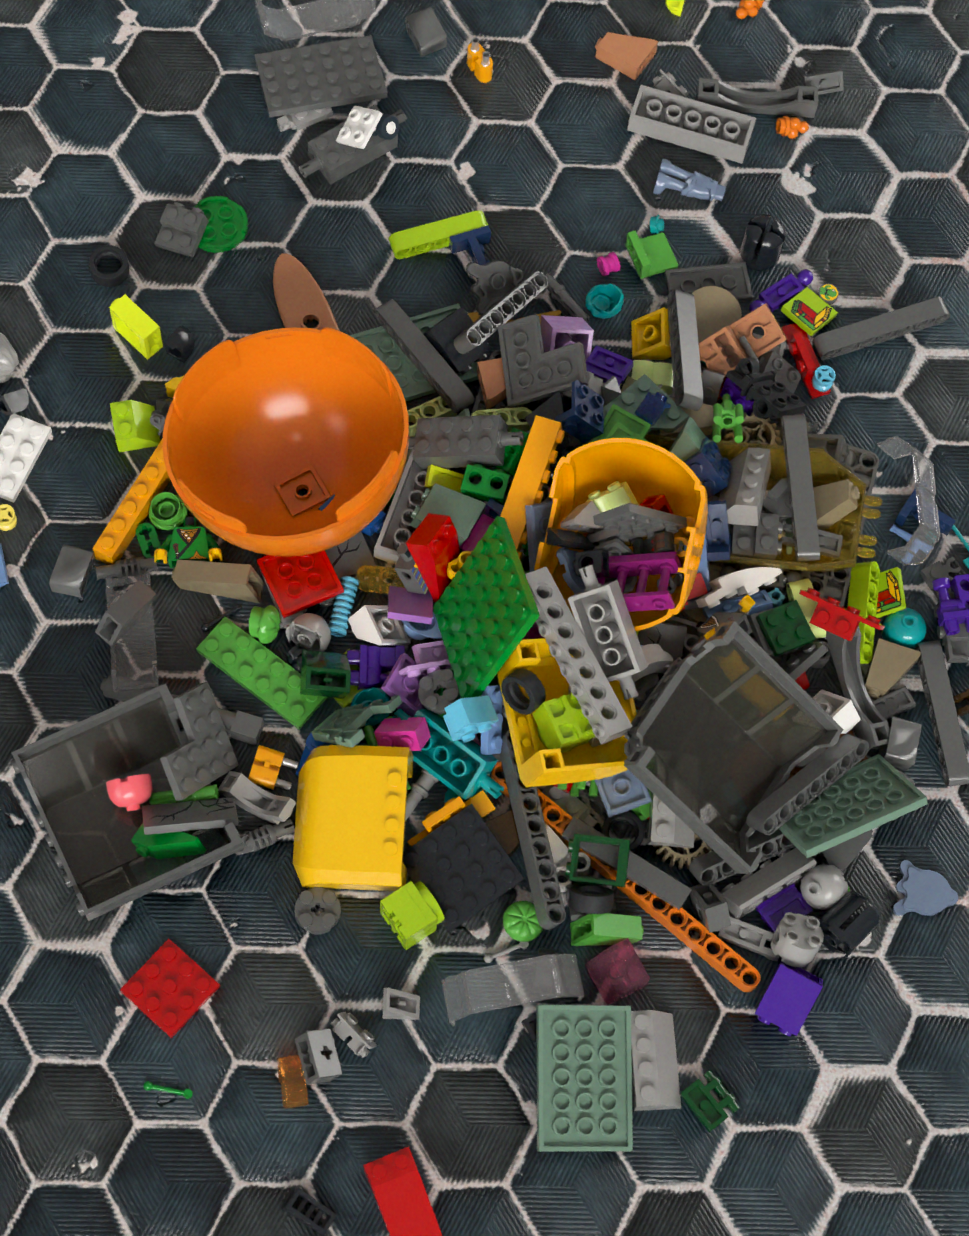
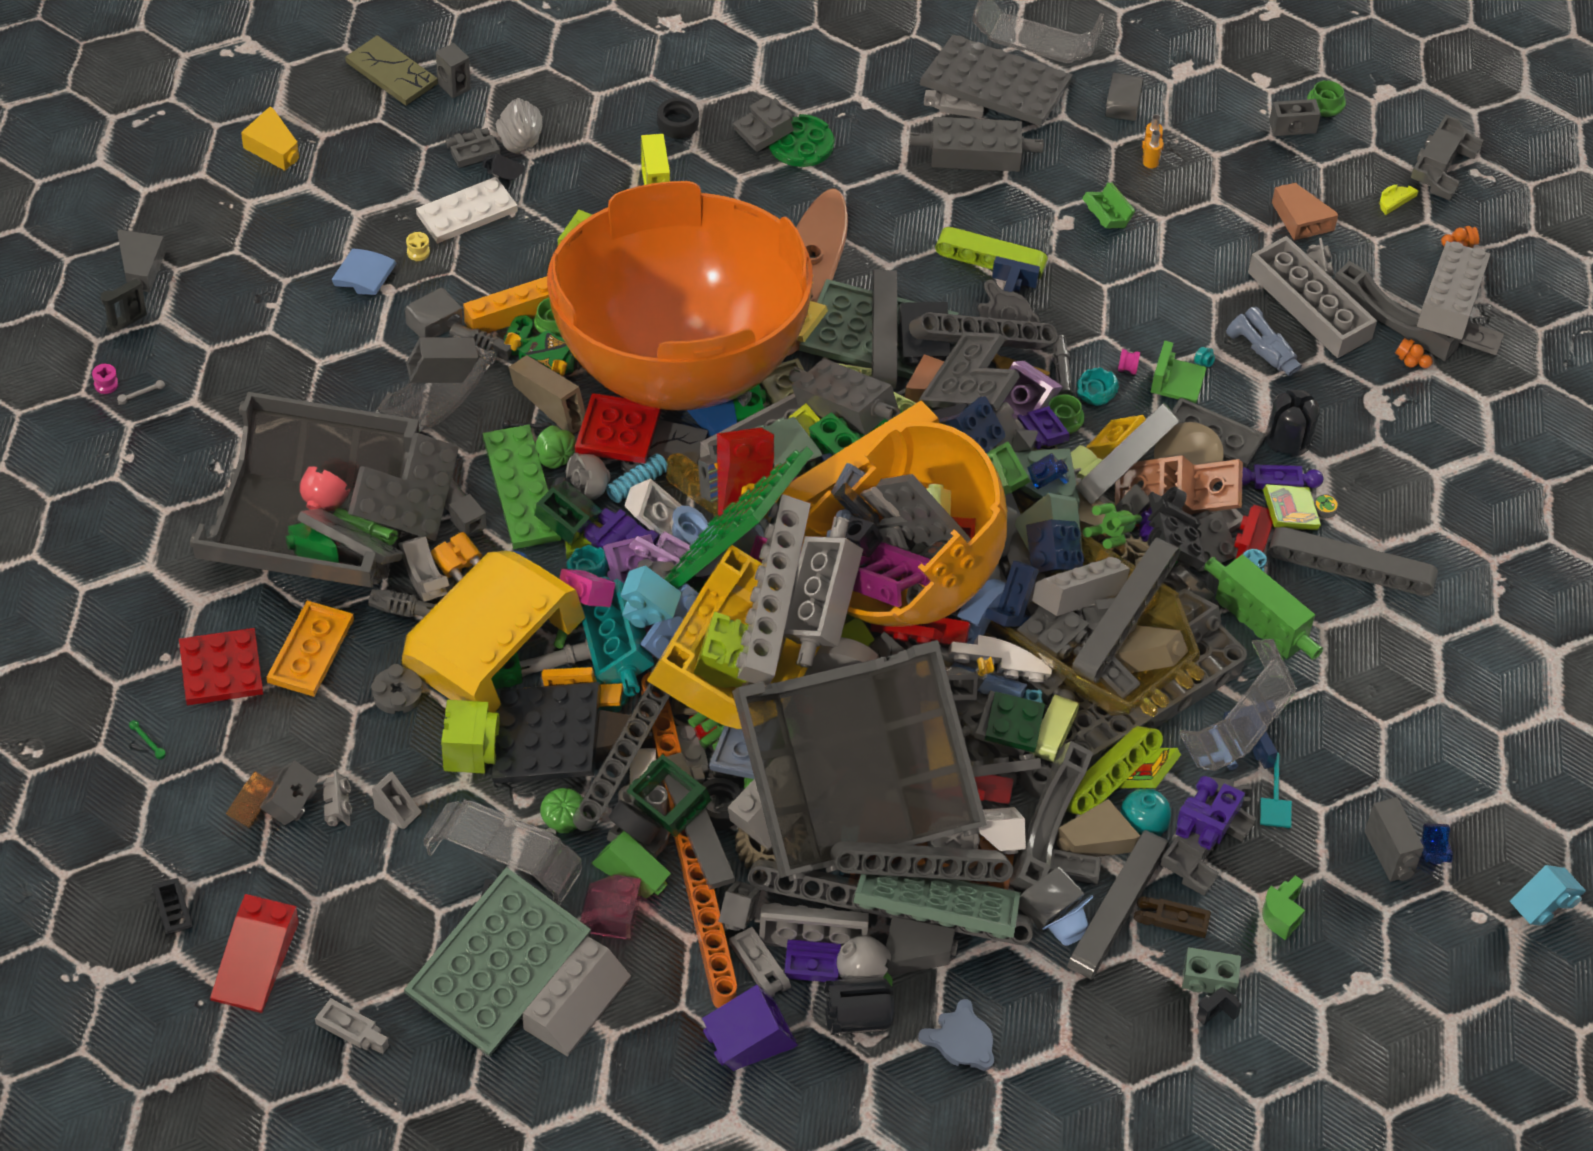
camera: 40 degrees right, 15 degrees down
(225, 924) = (310, 648): none -> light orange plate
(342, 724) = (559, 557): sand green wing -> none
(364, 123) = (995, 121): white plate -> none
(409, 605) = (689, 504): medium lavender tile -> none
(491, 137) = (1109, 207): none -> bright green bracket
(520, 1205) = (351, 1026): none -> light grey hinge
(532, 686) = (708, 596): black tyre -> none
(605, 337) = (1068, 411): none -> bright green piece
(704, 1104) = (588, 1064): dark green plate -> none
(748, 349) = (1196, 497): dark grey piece -> none
(788, 57) = (1453, 290): none -> light grey brick
(797, 939) = (795, 981): light grey brick -> none
(837, 619) = (1068, 740): red bracket -> none
(860, 409) = (1264, 606): none -> bright green brick
(928, 751) = (1071, 926): none -> light blue piece

